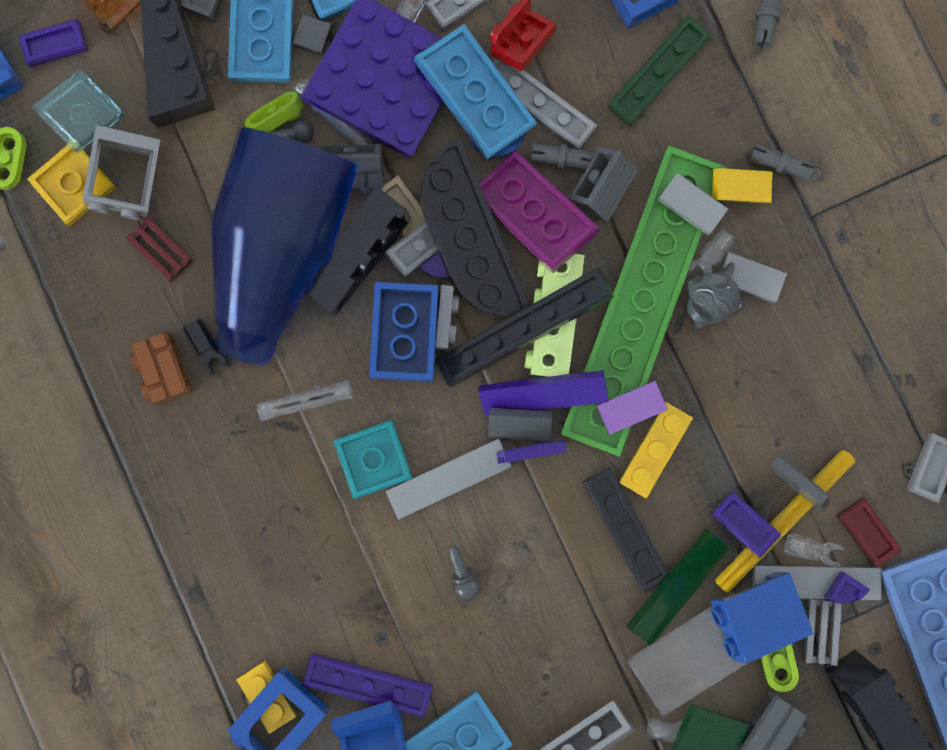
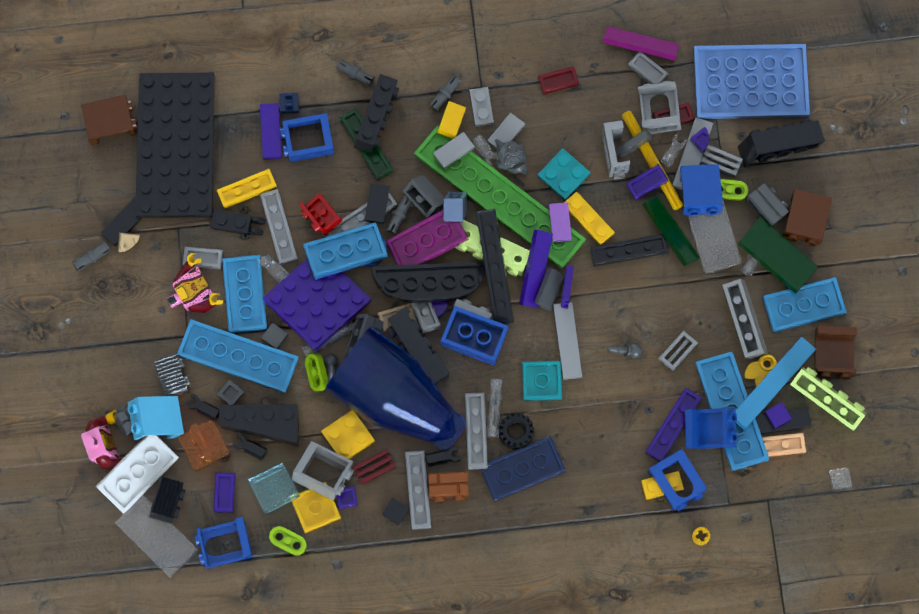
camera: 75 degrees left, 10 degrees down
(100, 225) = (347, 498): none -> dark purple tile
(101, 303) = (395, 511): none -> black tile
(130, 57) = (251, 447): none -> black bar
(158, 318) = (418, 490): none -> light grey tile
(190, 194) = (348, 435): none -> yellow plate
(226, 473) = (522, 468): none -> dark blue tile
(259, 384) = (476, 431): none -> light grey tile
(266, 431) = (516, 419): none -> black tyre
(507, 678) = (667, 363): none -> light grey tile
(567, 116) = (377, 203): none -> black tile
(600, 234) = (455, 206): none -> sand blue panel
(711, 65) = (375, 114): none -> black brick
(714, 389) = (563, 174): none -> teal plate
(780, 226) = (481, 106): none -> light grey plate
(806, 439) = (610, 132): none -> light grey panel
(866, 332) = (558, 80): none -> dark red tile
(897, 479) = (663, 124): none -> light grey panel

